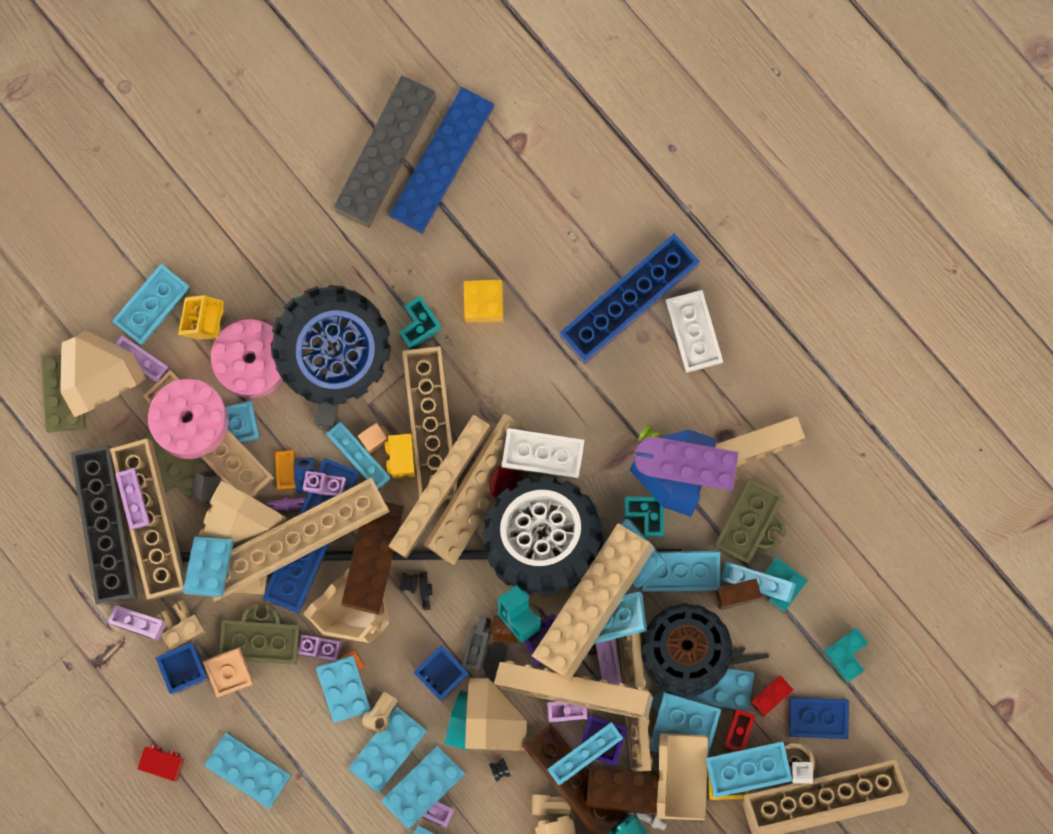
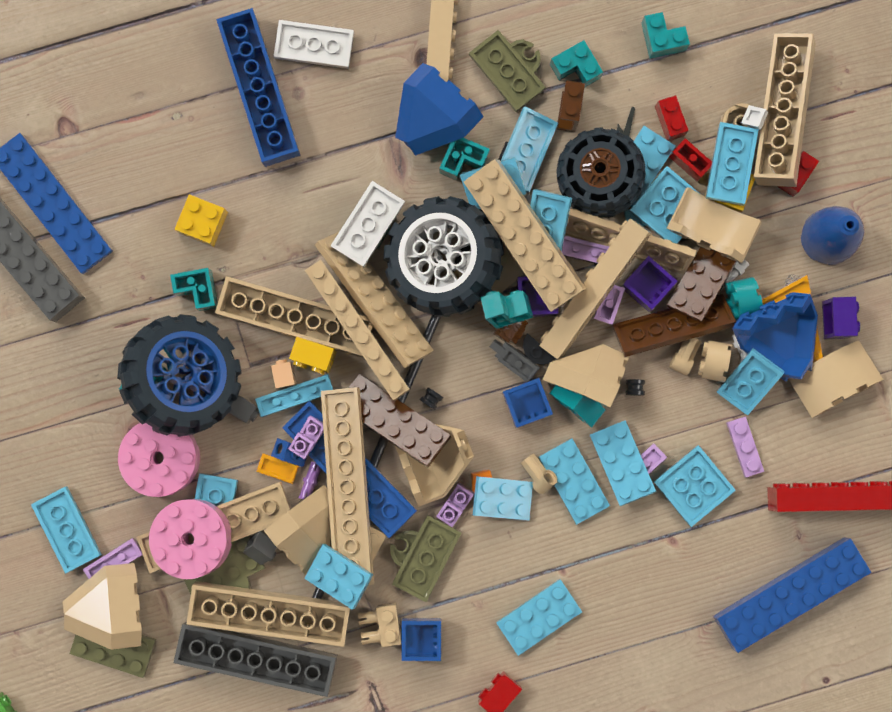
camera: 70 degrees left, 5 degrees up
(132, 499) = (244, 621): lavender plate -> none
(136, 623) = (360, 664): lavender plate -> none
(205, 321) = (105, 485): yellow piece -> none
(228, 672) = (442, 598): light nougat tile -> none
(425, 590) = (444, 385): black plate -> none
(503, 478) = (375, 272): dark red tile -> none
(585, 753) = (657, 302): medium azure plate -> none
(647, 433) = (390, 125): lime wheel -> none
(687, 463) = (435, 95): medium lavender plate -> none
(767, 584) = (576, 72): medium azure plate -> none
(818, 718) = (707, 87): blue tile -> none

